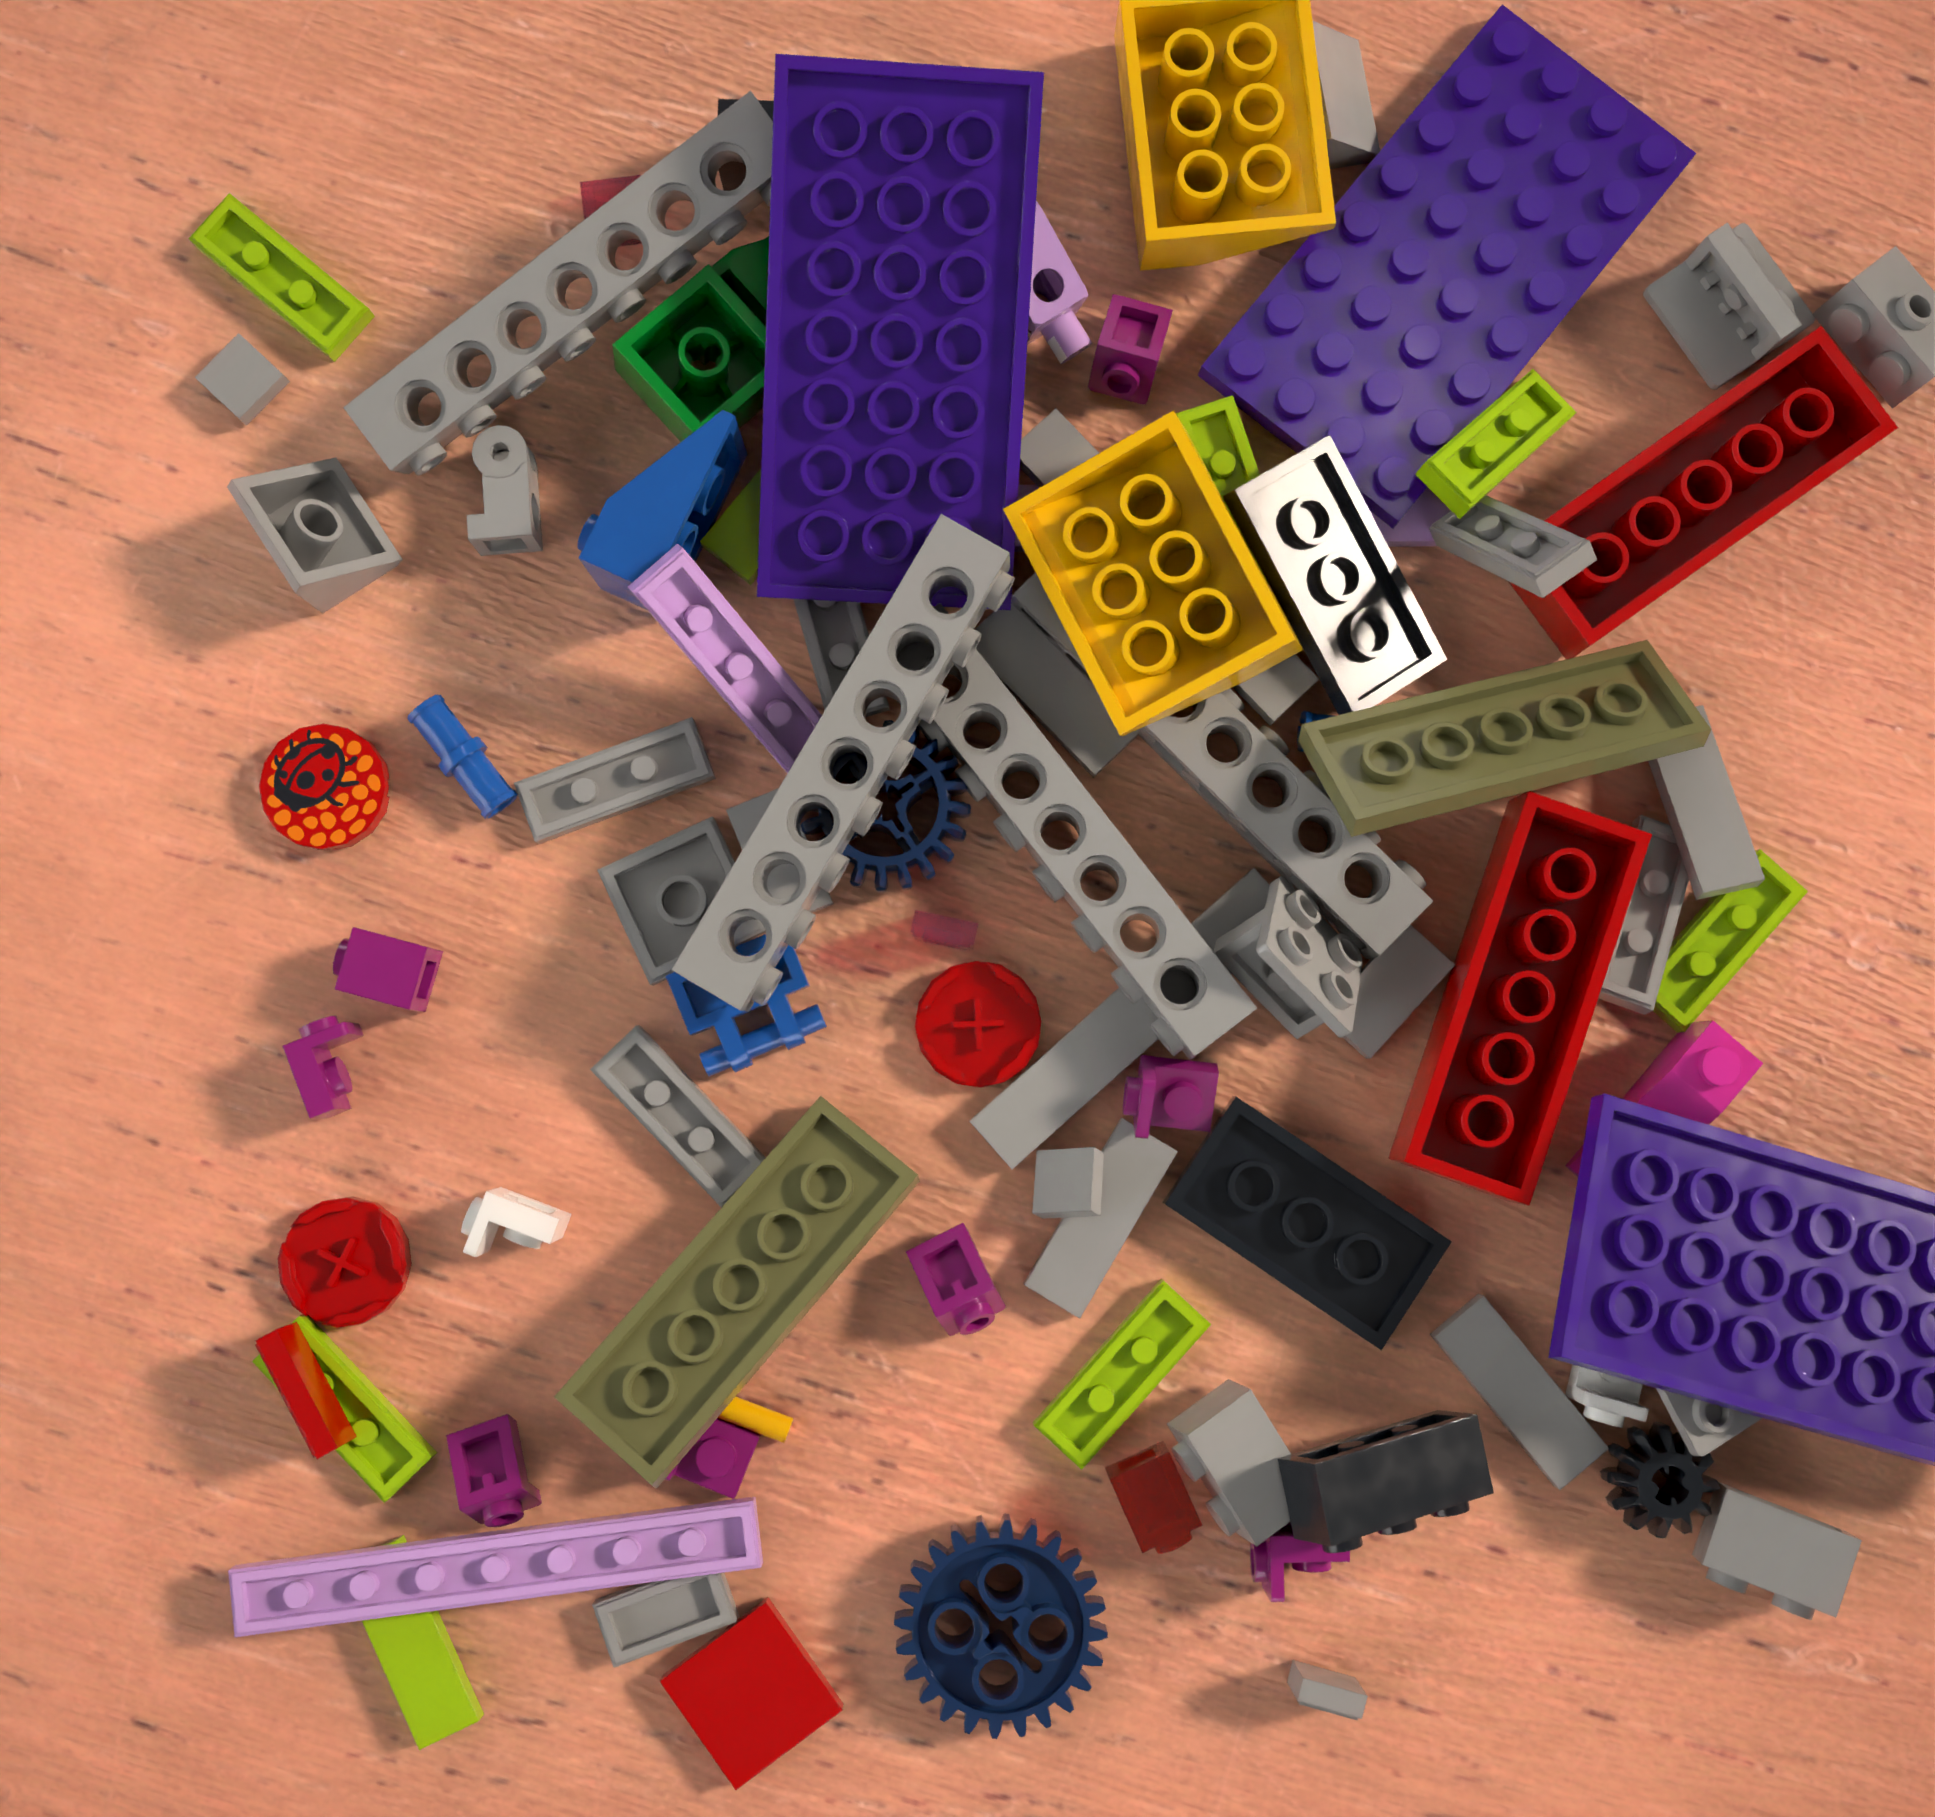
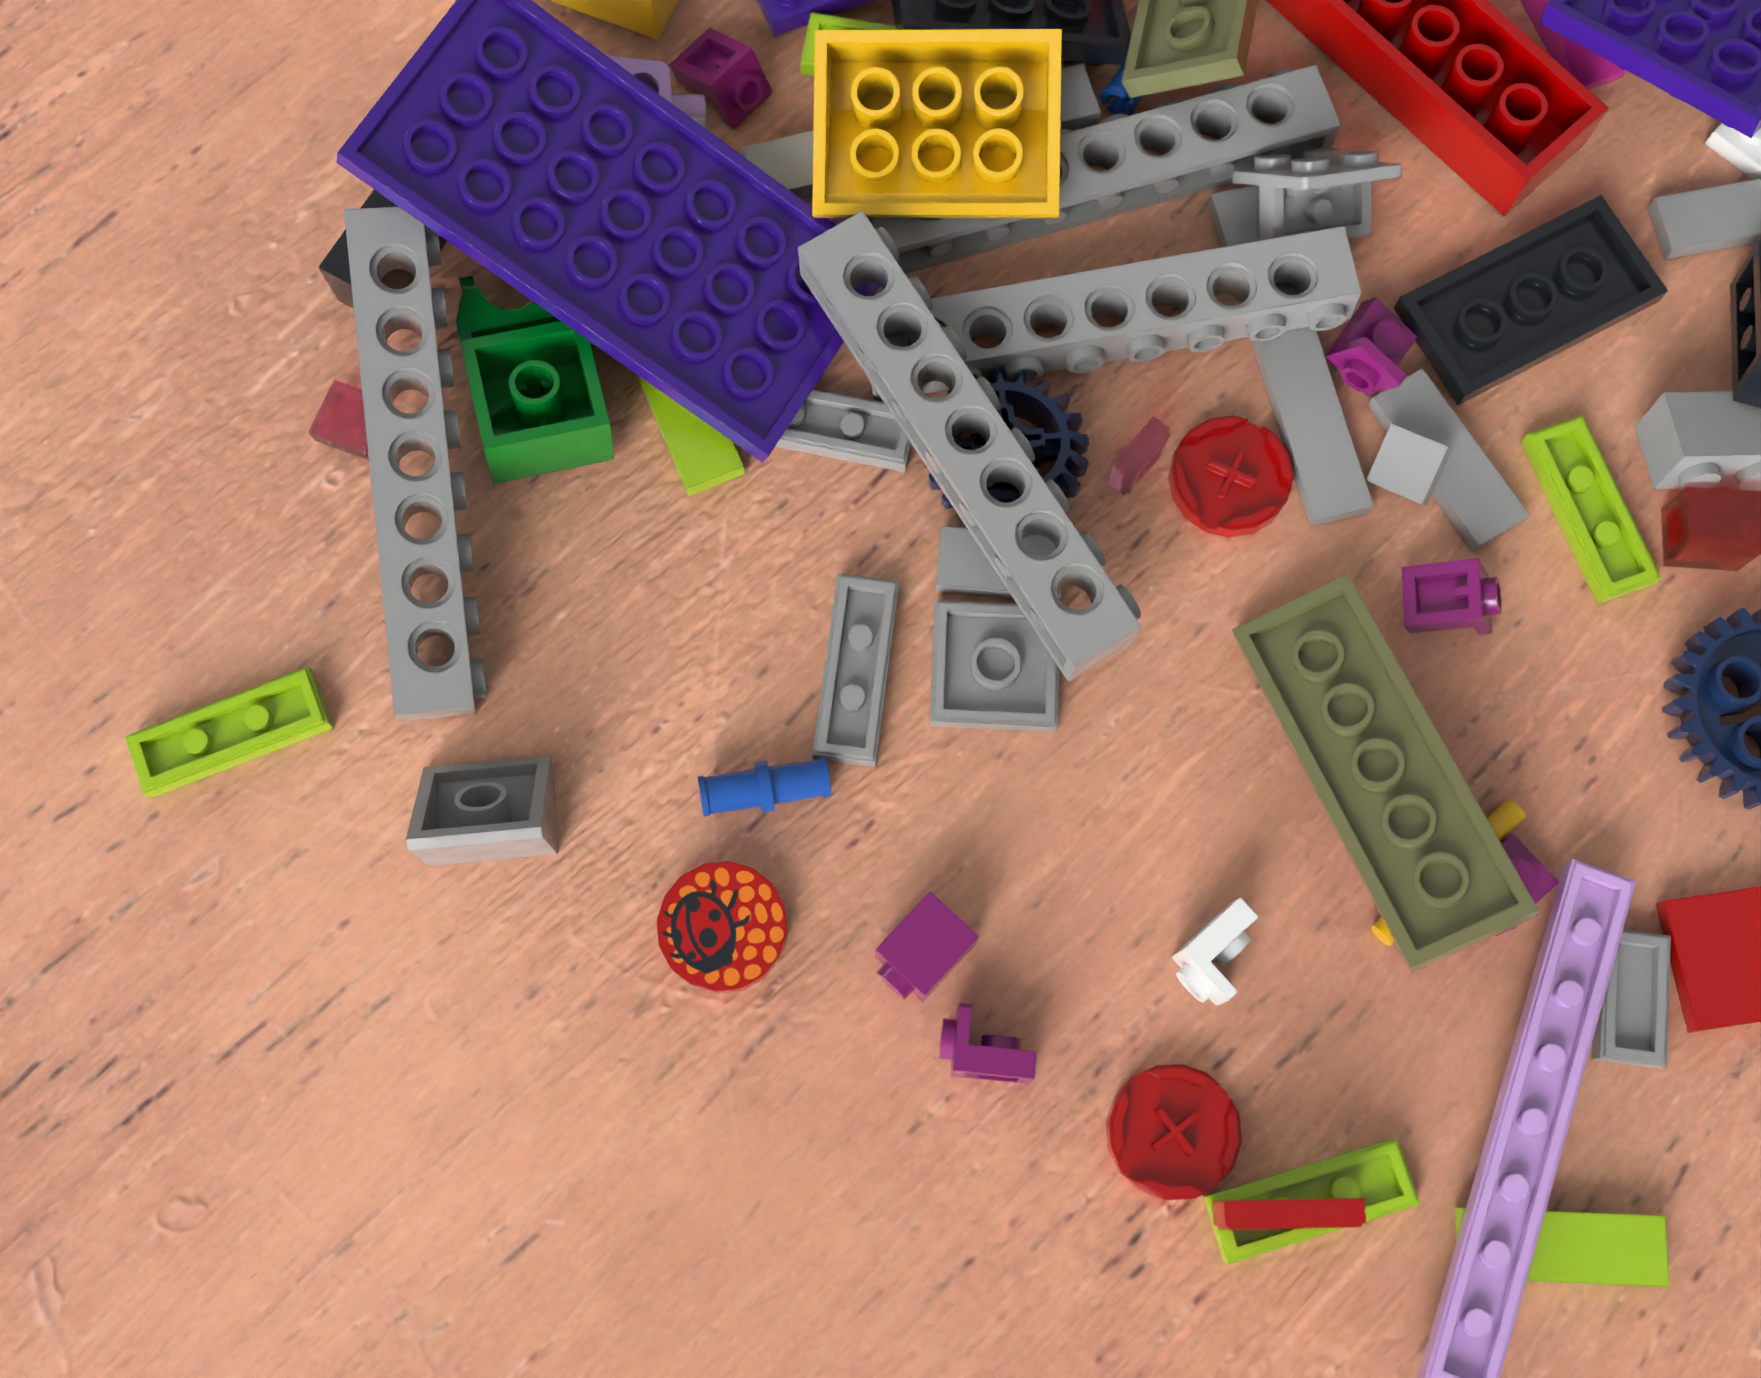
camera: 60 degrees left, 10 degrees down
(242, 379) = (301, 813): light grey tile -> none
(491, 1472) = (1437, 1086): magenta bracket -> none
(509, 495) = (542, 621): light grey leg -> none
(663, 507) = (673, 520): blue slope -> none
(678, 1114) = (1187, 762): light grey tile -> none
(704, 1010) = (1104, 685): blue plate -> none
(727, 654) = (817, 494): lavender tile -> none
(1051, 688) = (989, 263): light grey tile -> none
(1393, 988) = (1367, 130): light grey tile -> none

